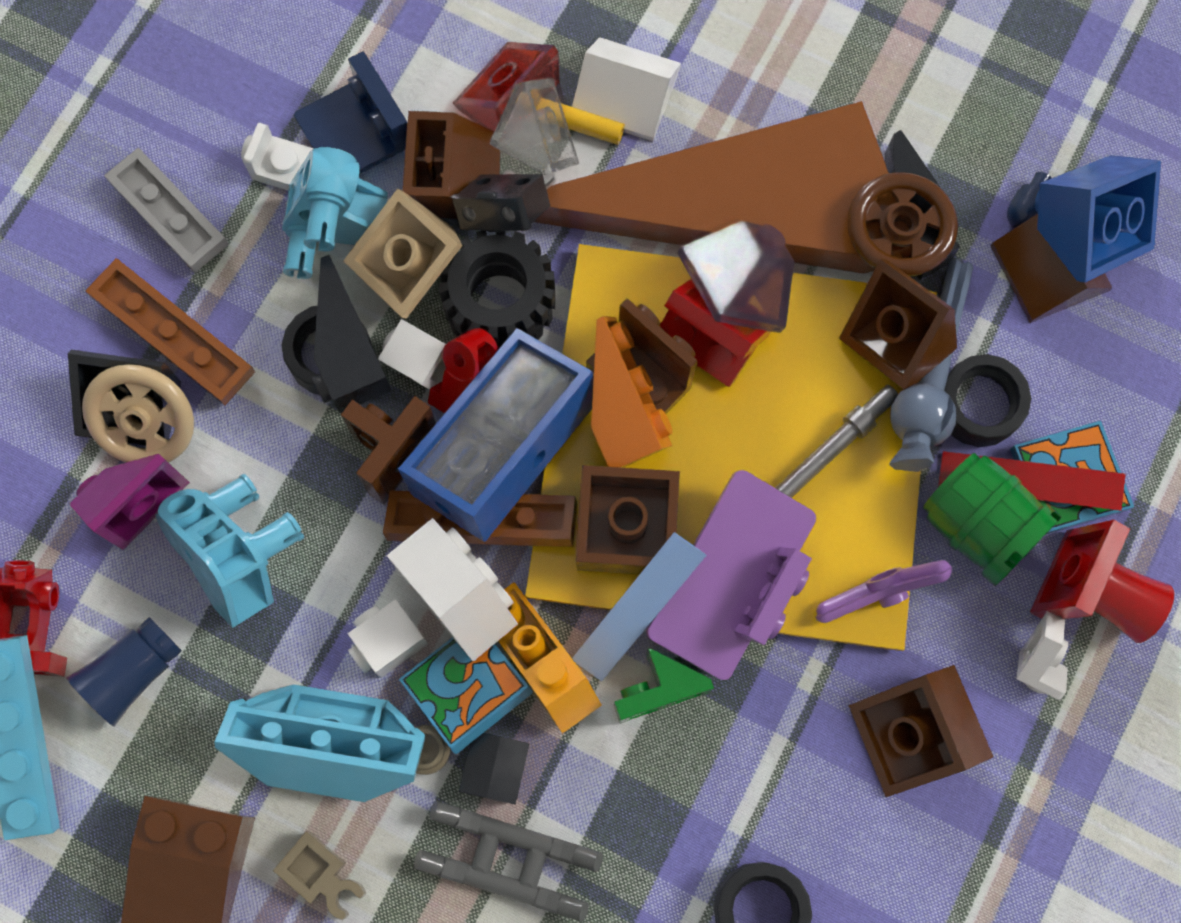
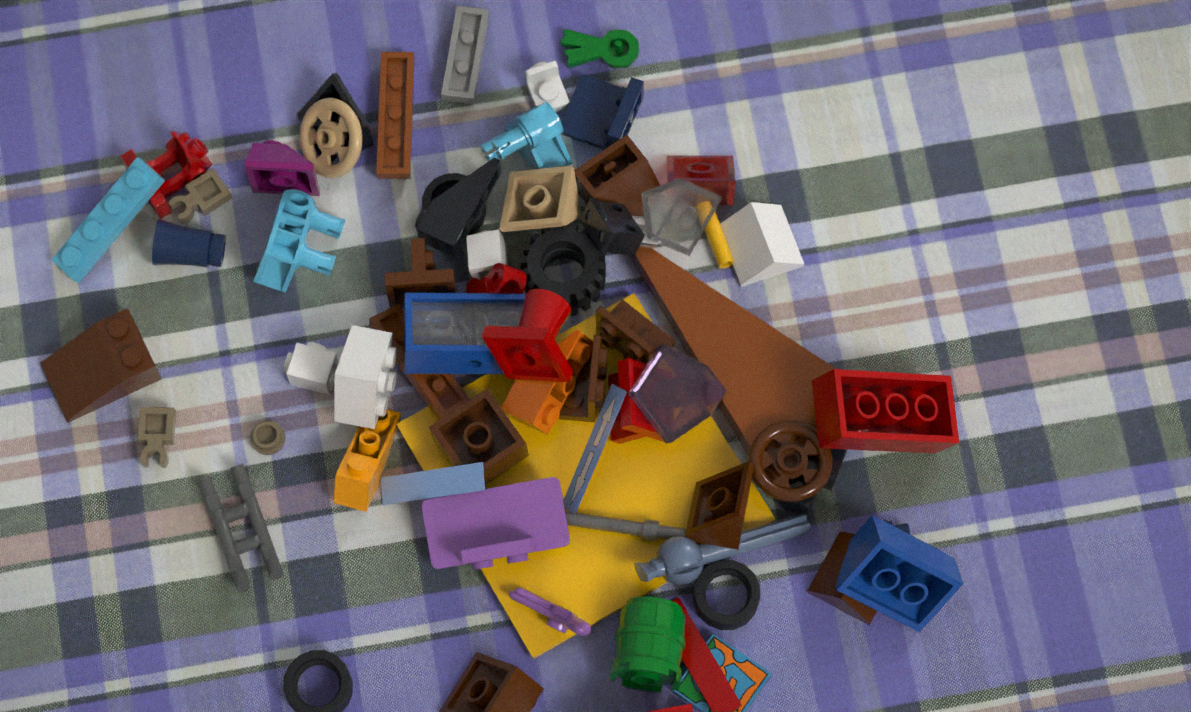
camera: 55 degrees right, 5 degrees down
(78, 603) = (205, 193): none -> dark tan plate
(293, 61) = (616, 48): none -> green piece
(322, 742) = (227, 376): medium azure wedge -> none
(462, 694) = (312, 433): tile -> none
(494, 768) = (285, 479): black piece -> none
(584, 375) = (531, 348): none -> red plant
(638, 273) = (630, 332): none -> reddish brown bracket
(674, 685) = (406, 542): green slope -> none
(733, 404) = (594, 448): none -> light blue sticker
(921, 95) = (884, 411): none -> red brick

